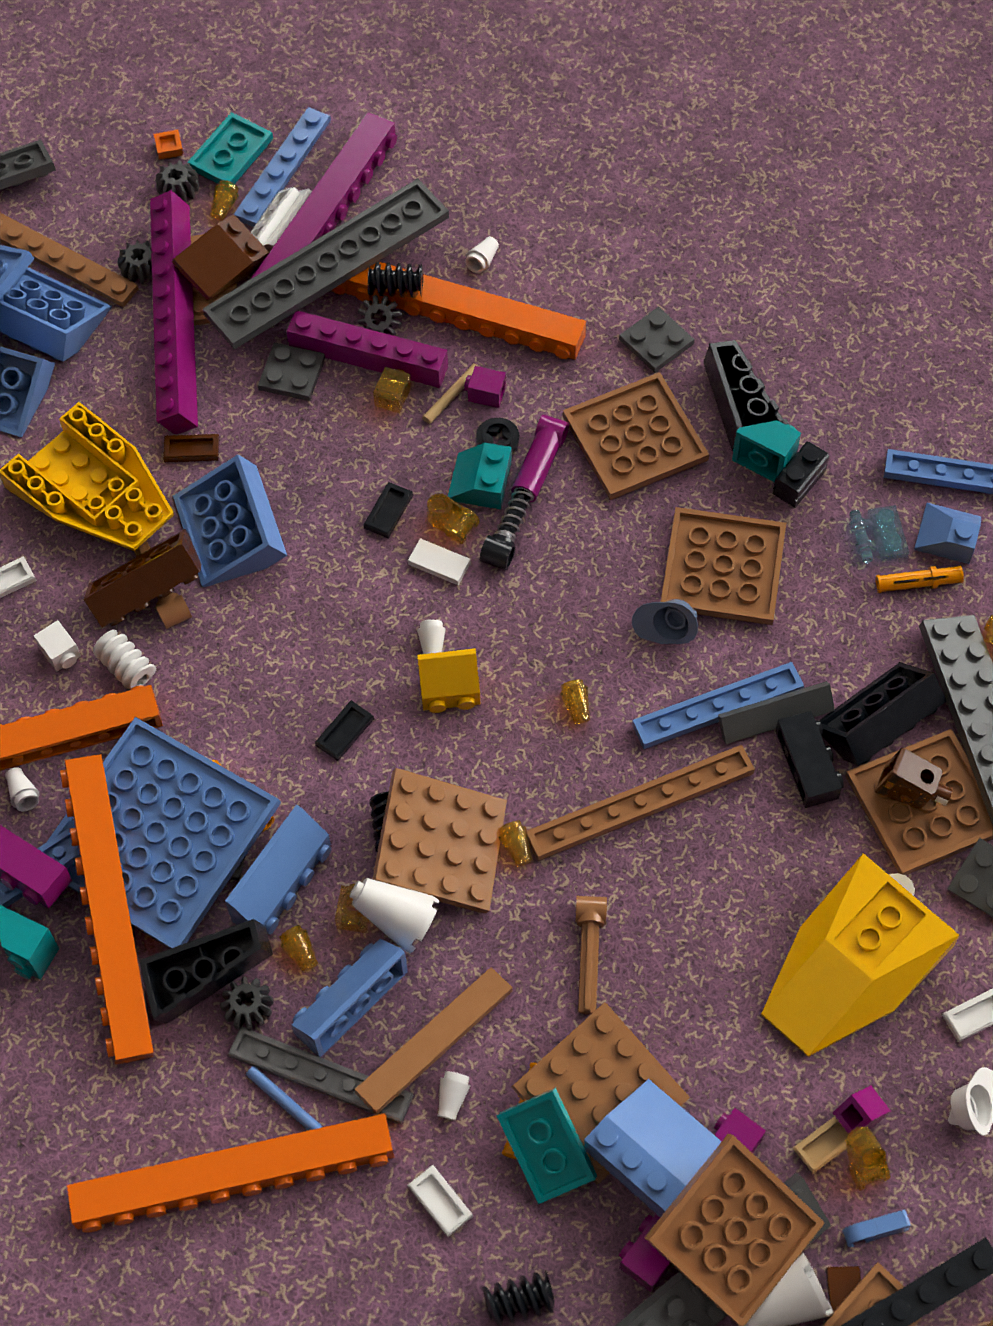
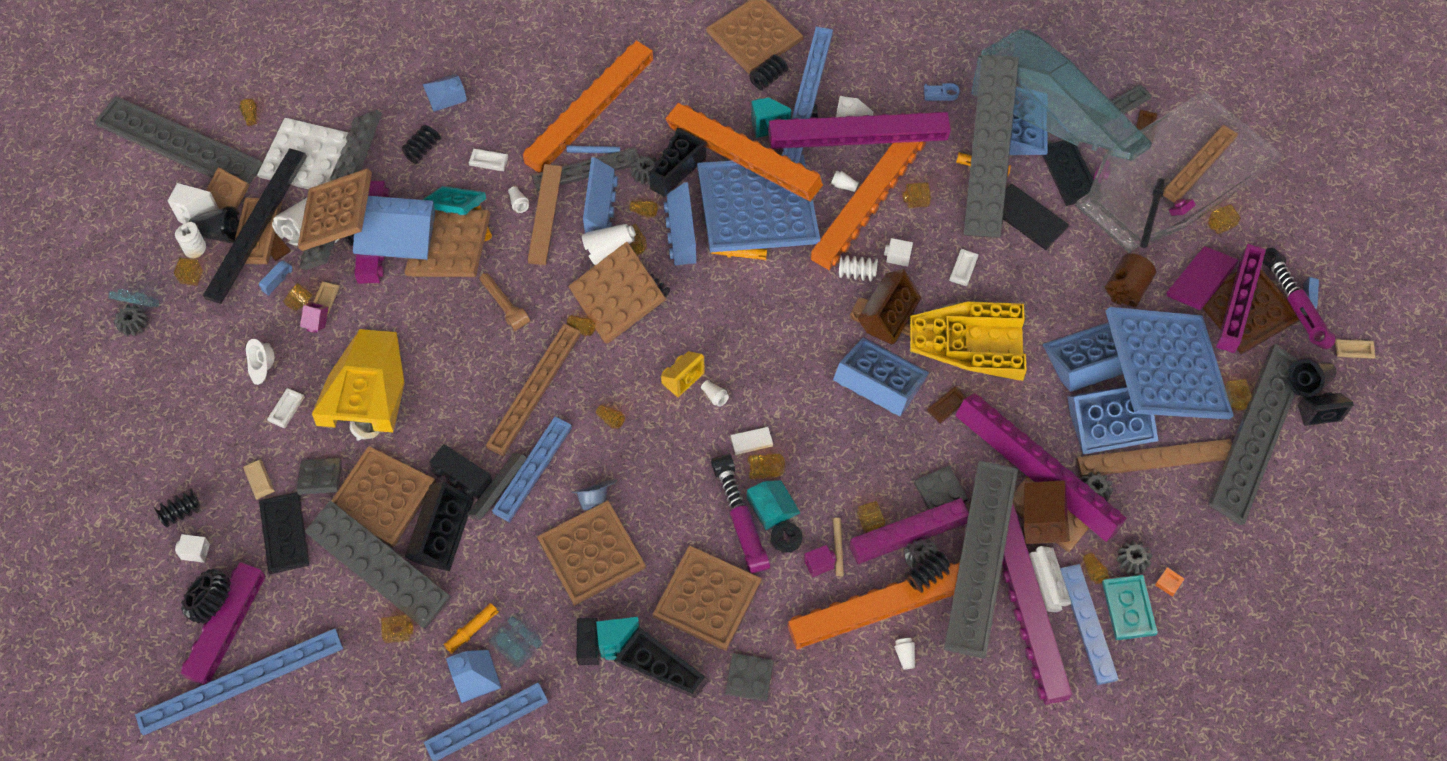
camera: 140 degrees right, 0 degrees up
(344, 730) = (718, 319): black tile -> none
(388, 510) = (806, 449): black tile -> none
(912, 781) = (391, 485): reddish brown torso -> none

